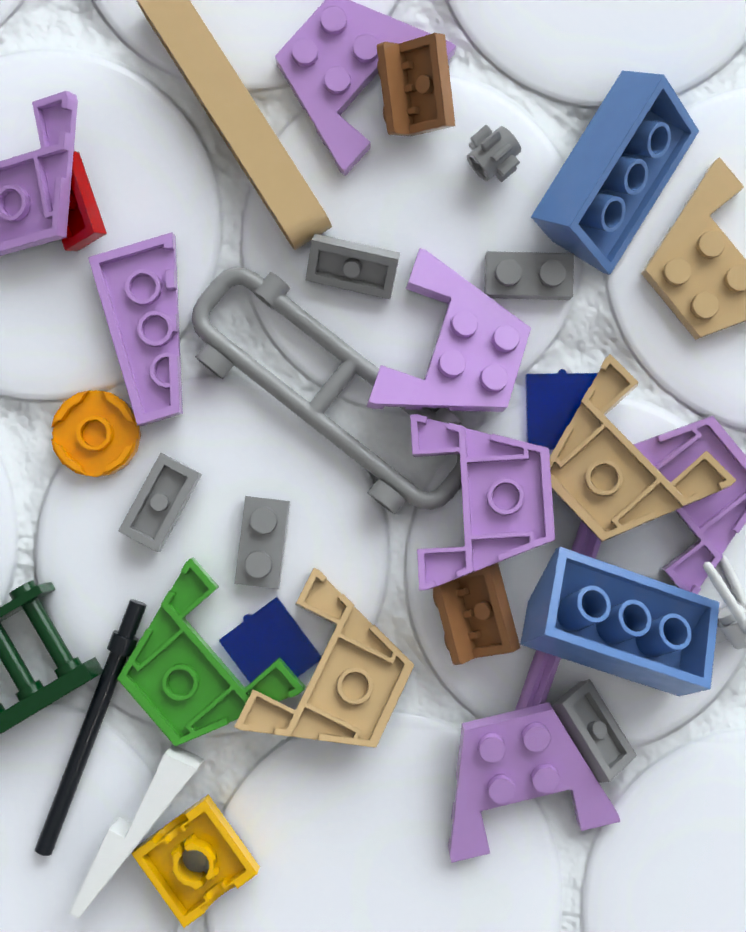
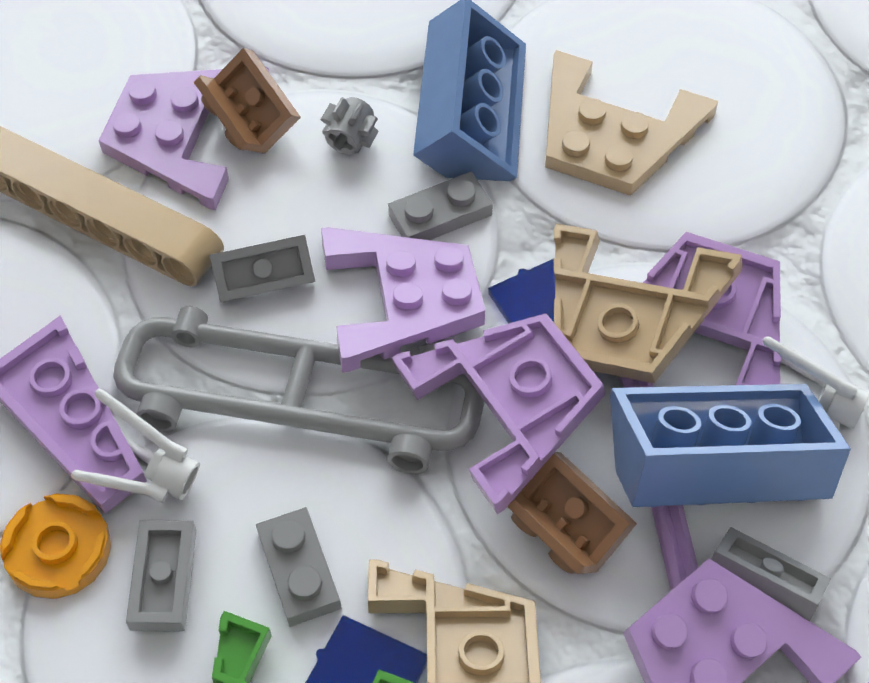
camera: 25 degrees left, 30 degrees down
(199, 421) = (167, 469): none -> white plant

